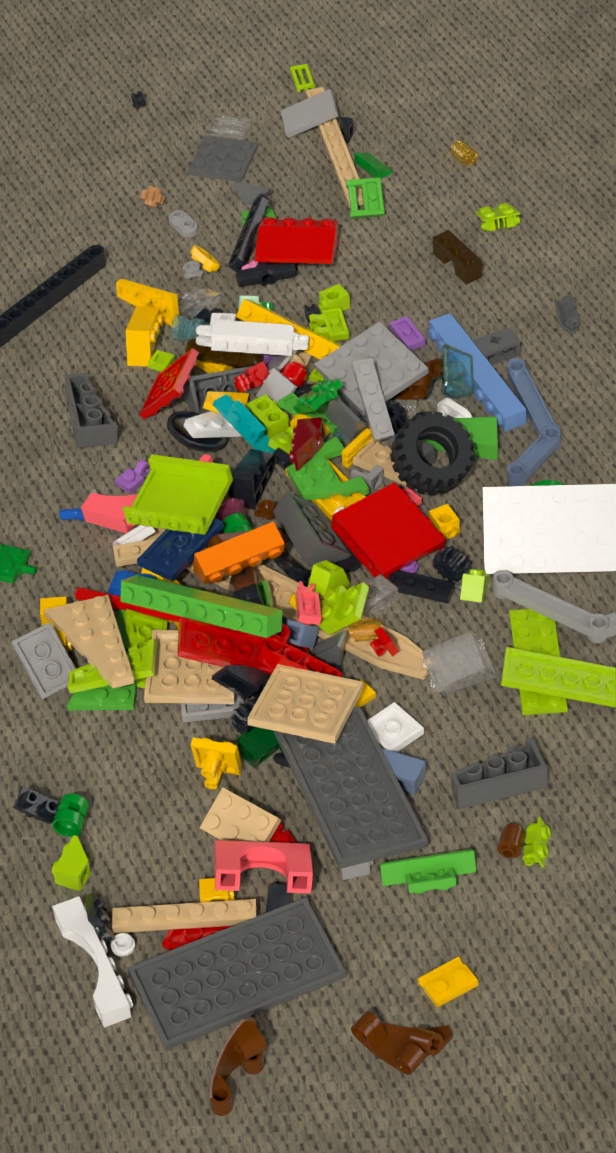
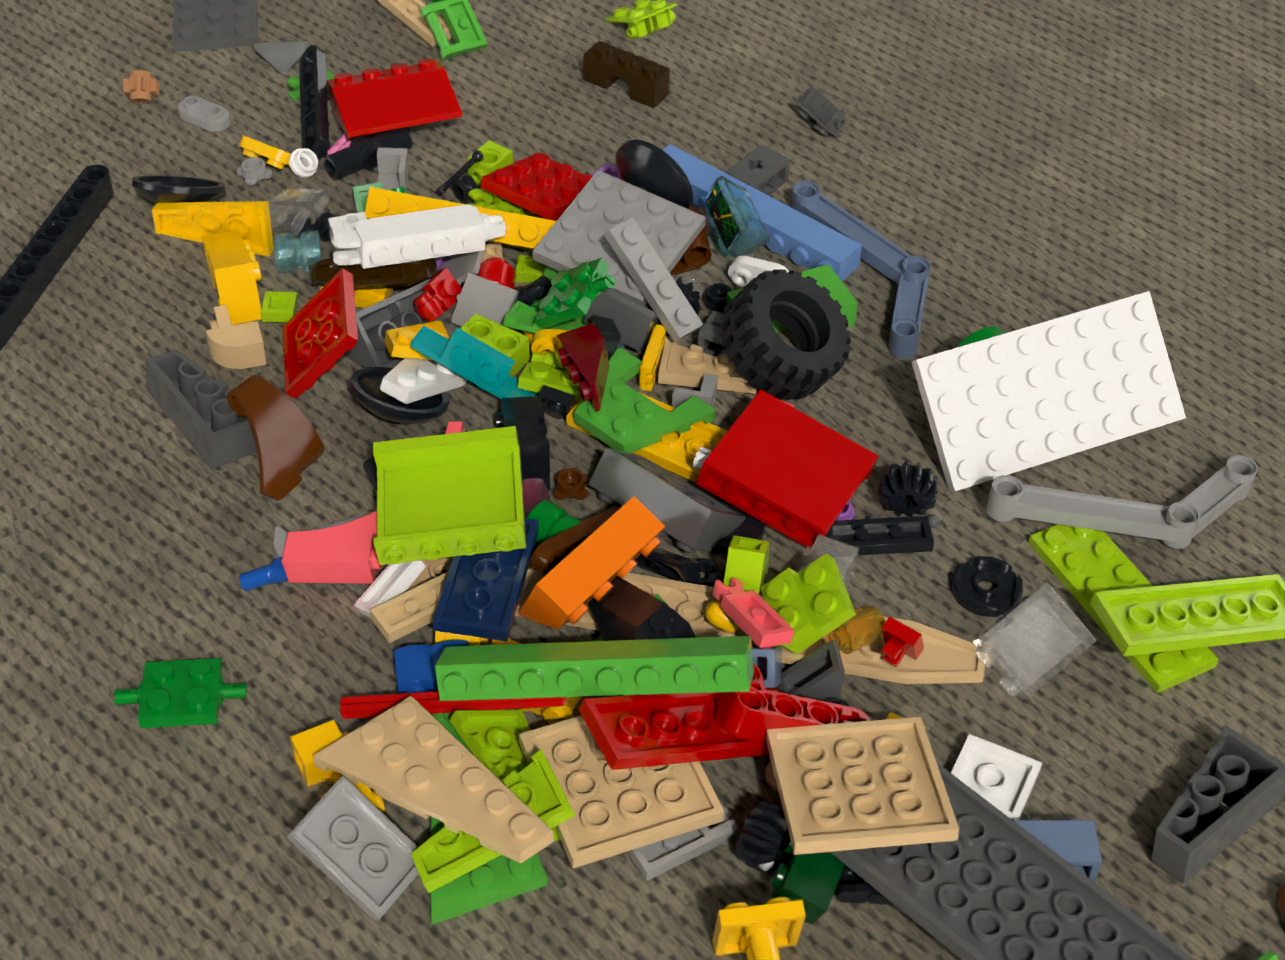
camera: 30 degrees left, 0 degrees up
(115, 438) = (281, 433): none -> reddish brown panel
(125, 378) = (235, 345): none -> tan brick
(132, 480) = (330, 495): medium lavender plate -> none
(139, 271) = (177, 188): none -> black dish
(228, 271) = (308, 159): none -> white plate
(242, 680) = (733, 776): black slope -> none
(275, 289) = (393, 167): none -> light grey panel
(323, 293) = (477, 156): none -> black hinge
(329, 426) = (609, 332): none -> black slope
(351, 319) = (537, 185): none -> red plate
(413, 335) = (653, 171): none -> black dish
(445, 521) = (854, 425): yellow brick -> none
(469, 621) = (982, 601): none -> black tile
(475, 585) = (961, 512): slope -> none

